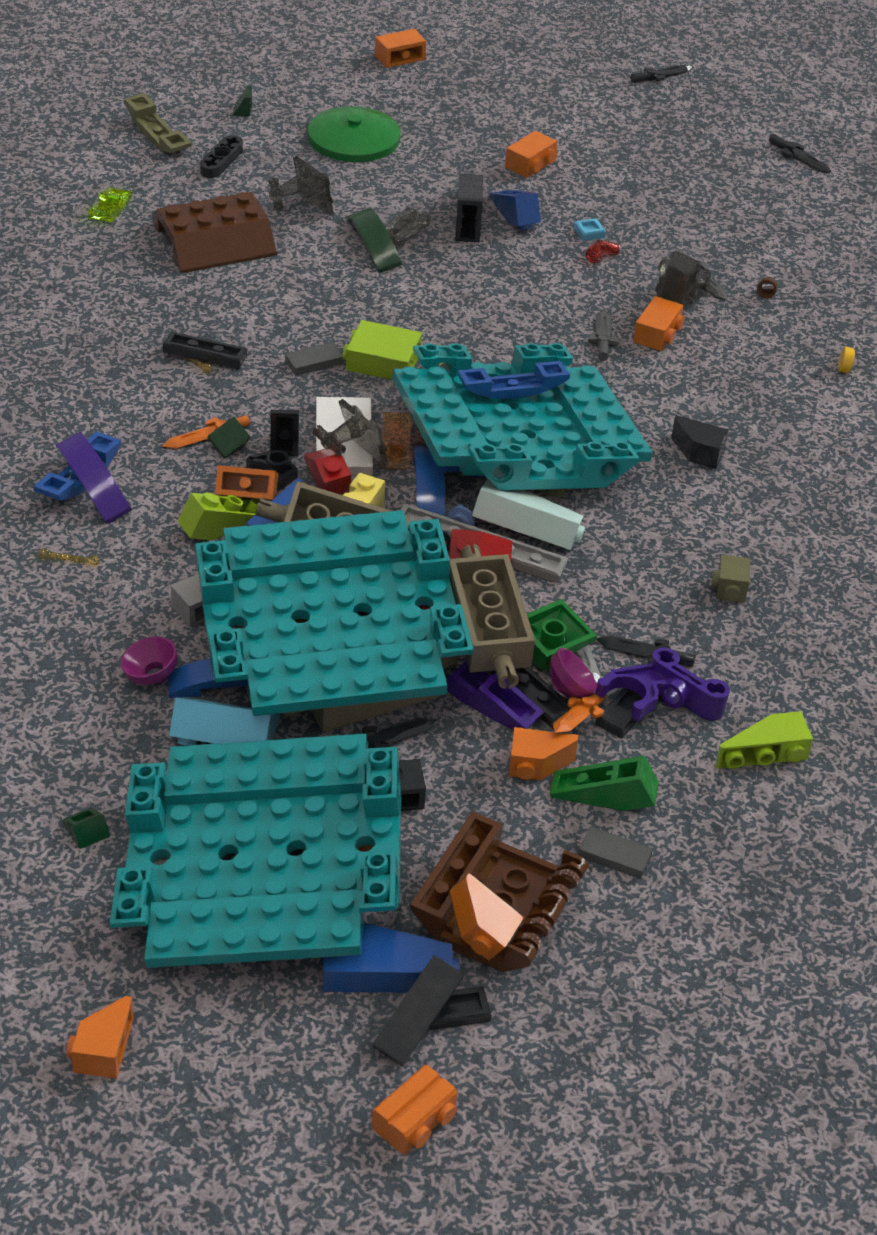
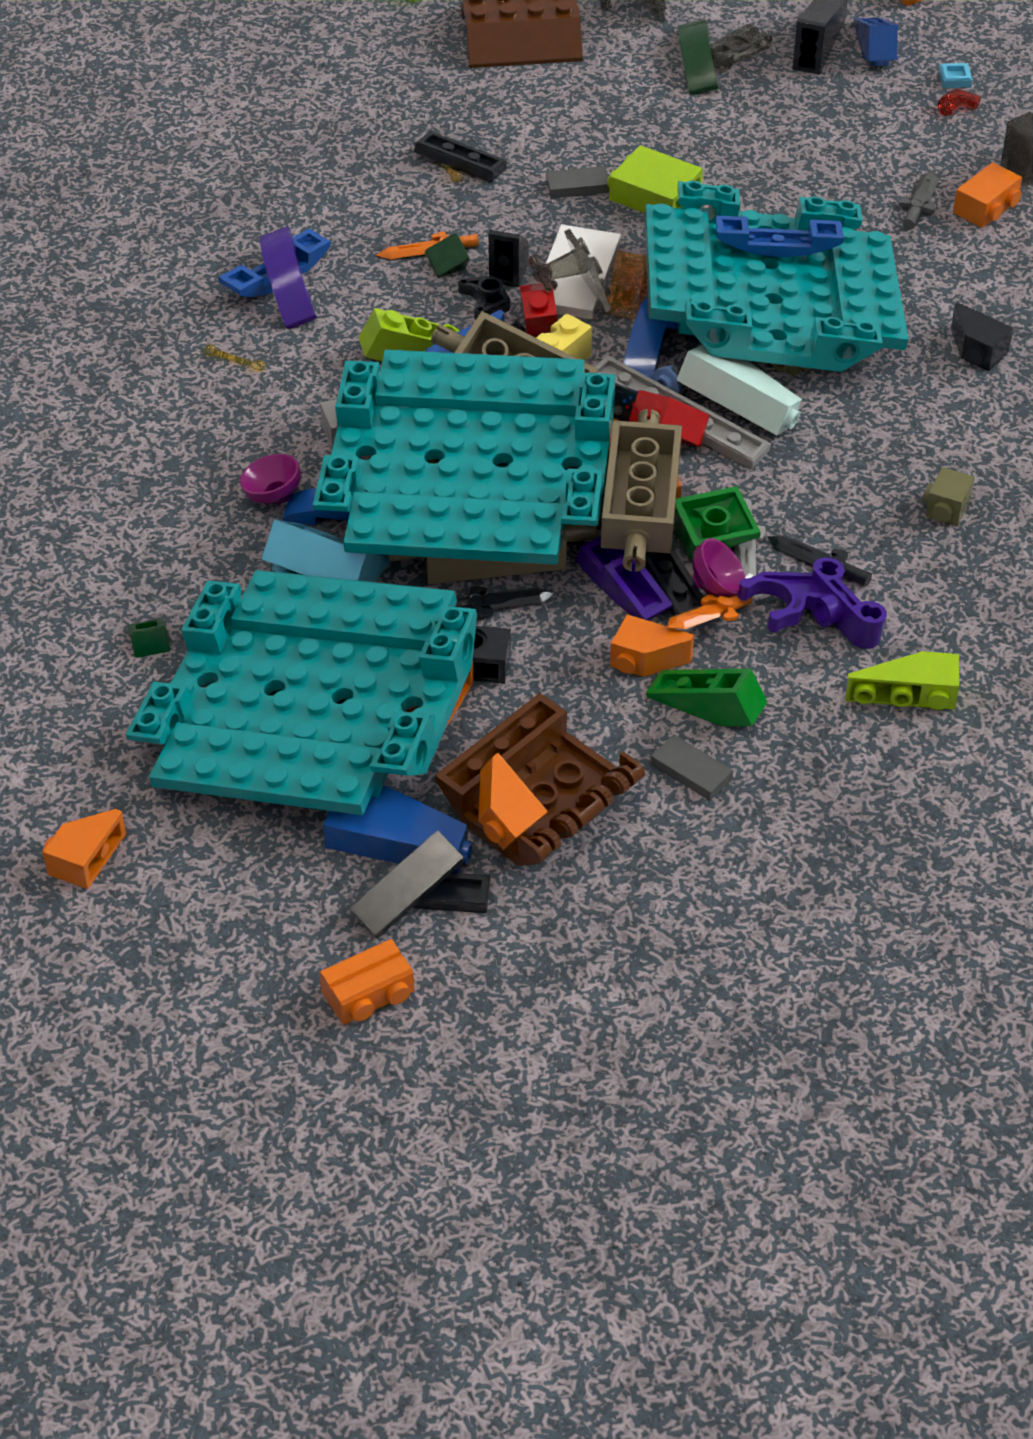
camera: 20 degrees right, 5 degrees up
(246, 483) = (443, 306): orange brick -> none
(617, 714) = (752, 624): black tile -> none

